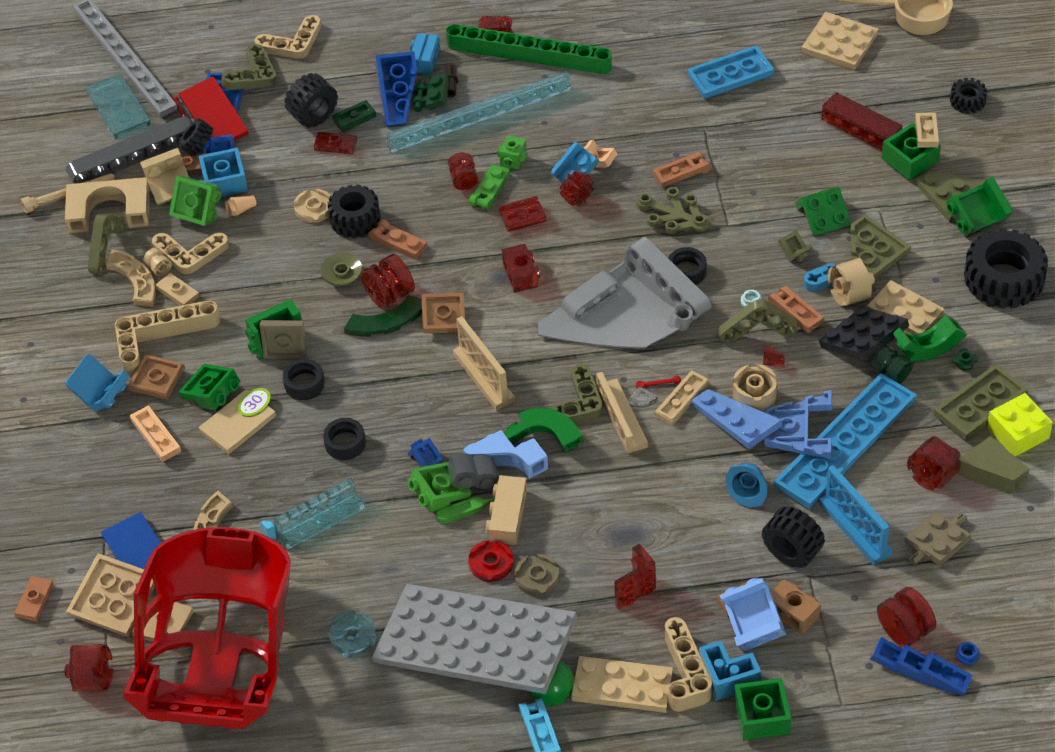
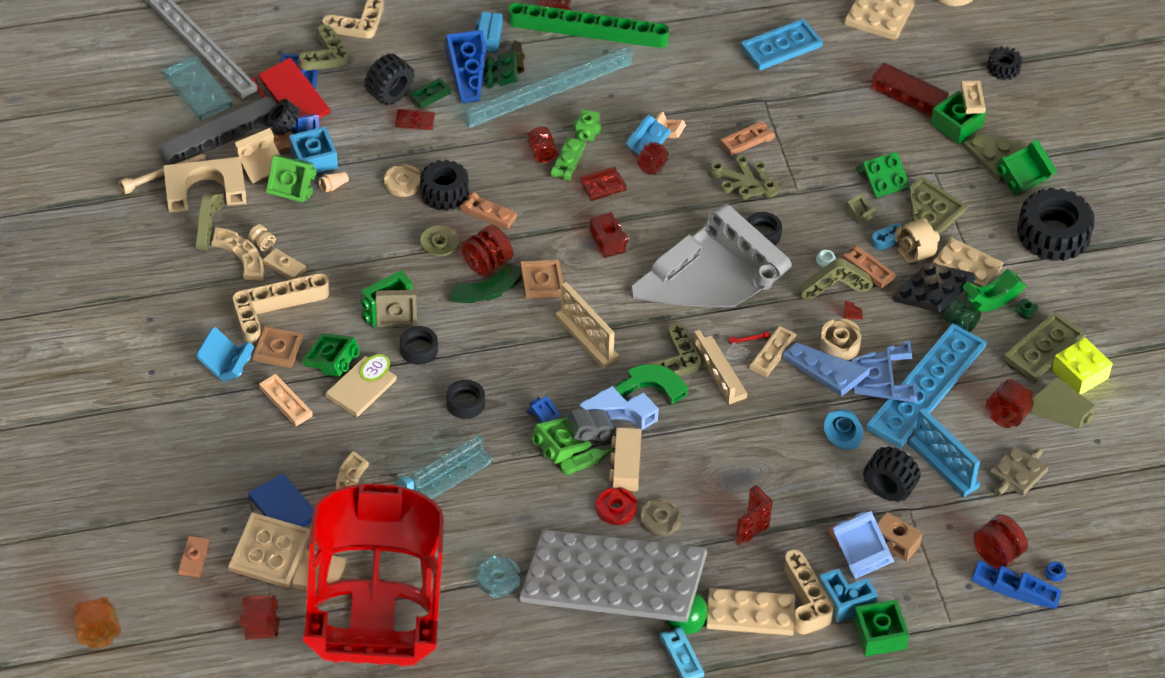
camera: 10 degrees left, 0 degrees up
(214, 245) = (293, 231): tan beam -> none

